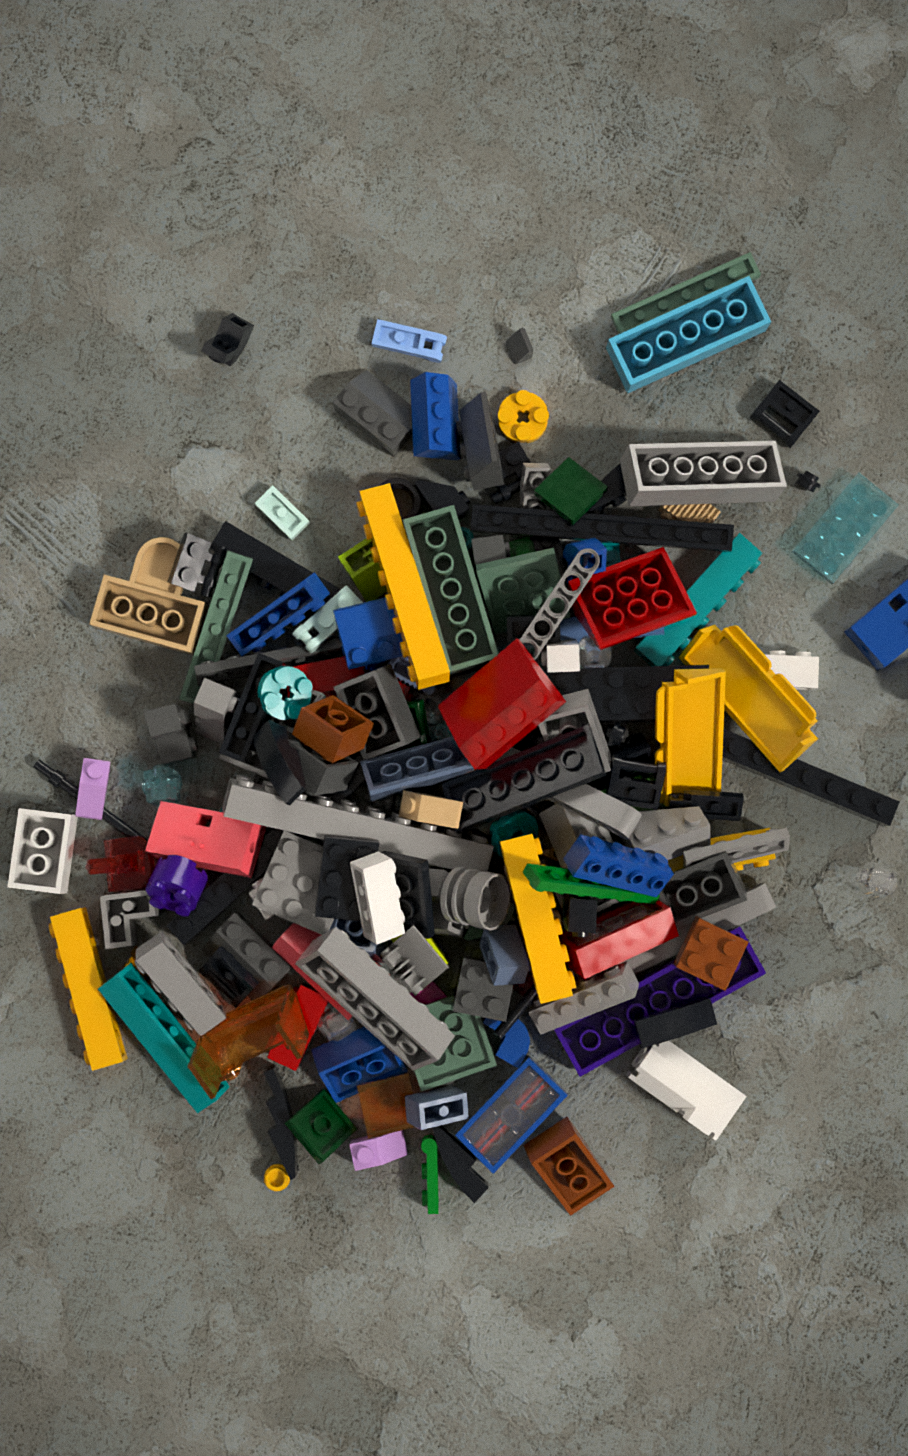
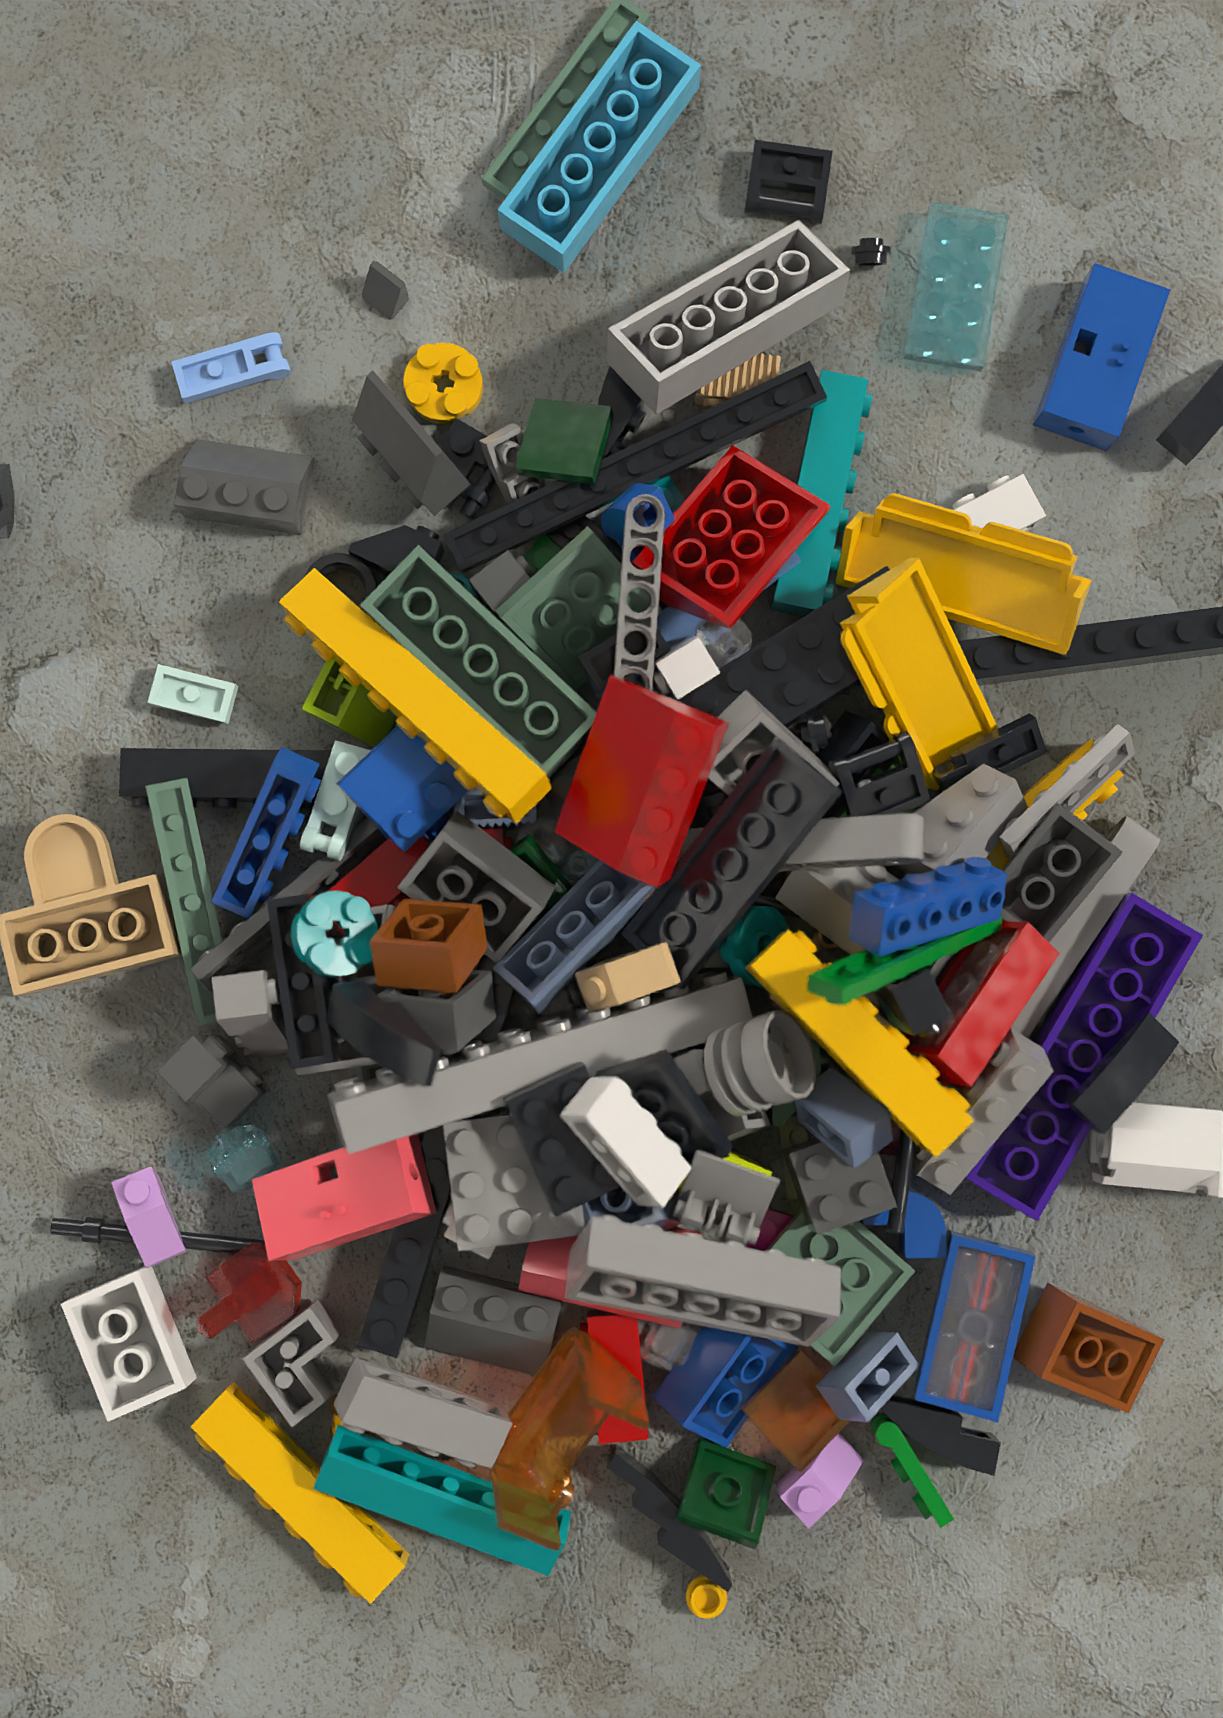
camera: 30 degrees left, 0 degrees up
(176, 885) = (338, 1283): dark purple brick -> none
(190, 561) = (104, 834): plate -> none
(229, 976) = (483, 1362): black plate -> none
(435, 416) = (324, 446): blue slope -> none
(710, 953) = (1117, 952): dark orange brick -> none

